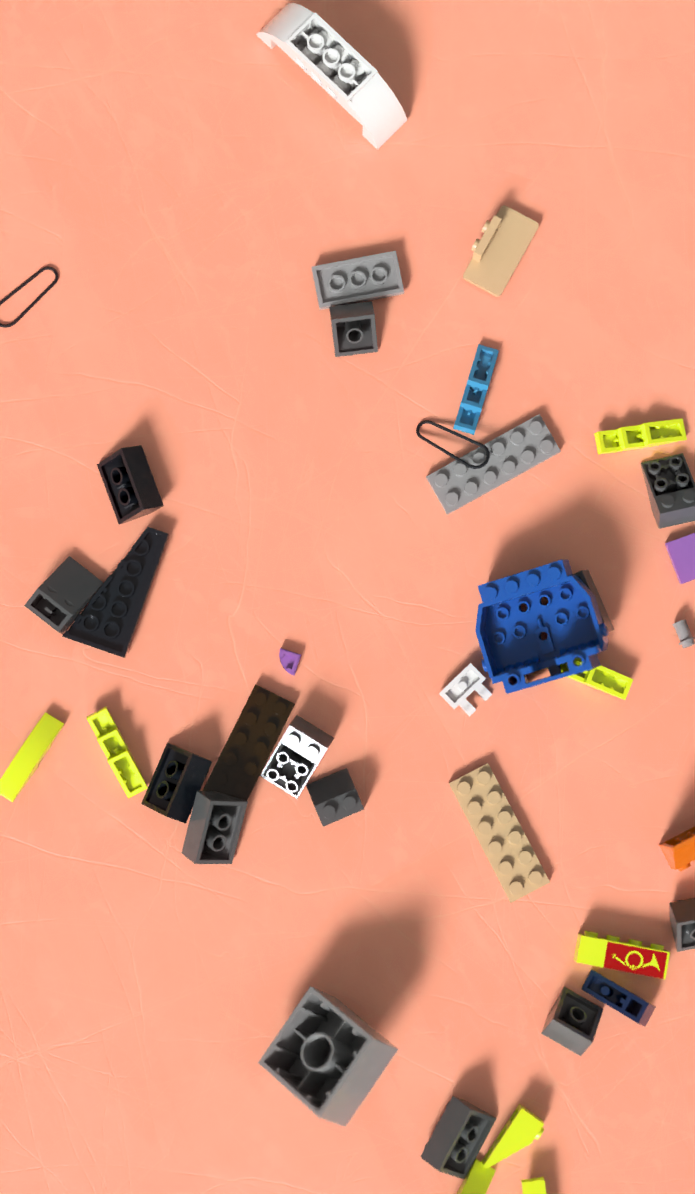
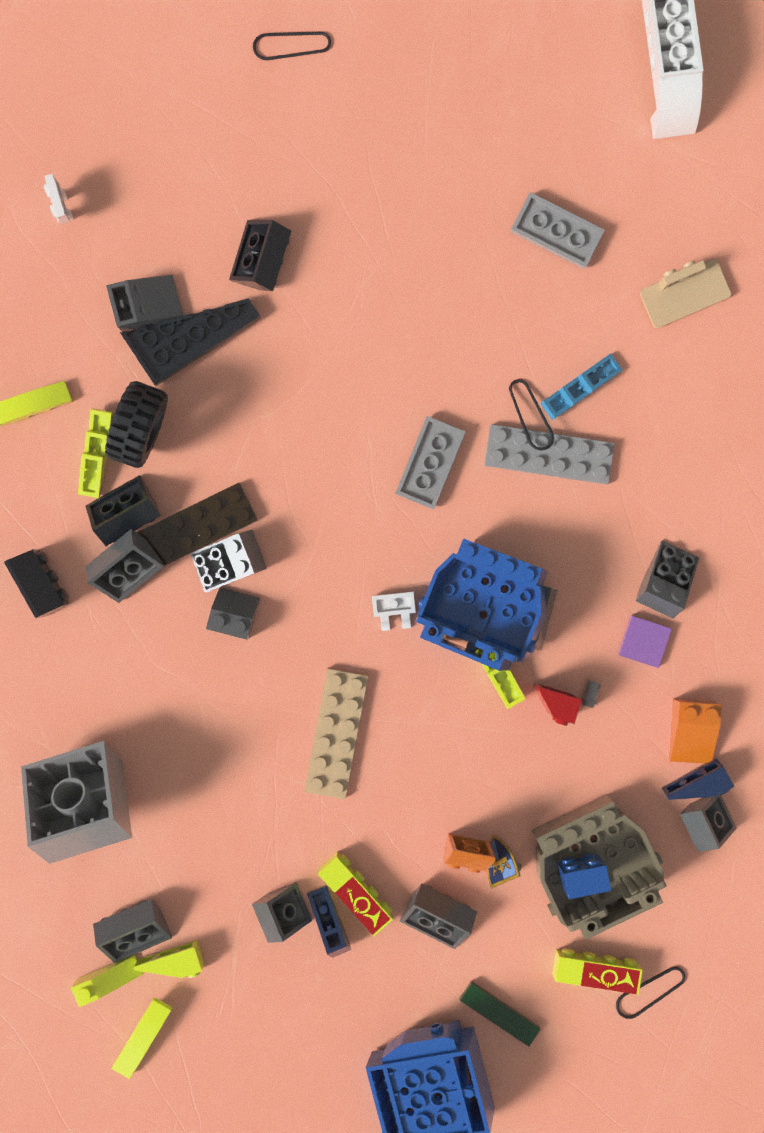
camera: 35 degrees right, 5 degrees up
(137, 699) = (136, 424): none -> black tyre
(152, 897) = (37, 583): none -> black slope
(289, 660) = (278, 484): medium lavender tile -> none
(353, 329) = (524, 266): dark grey slope -> none
(401, 546) = (430, 462): none -> light grey plate
(640, 436) = (677, 520): neon yellow slope -> none
(664, 662) = (559, 704): none -> red slope

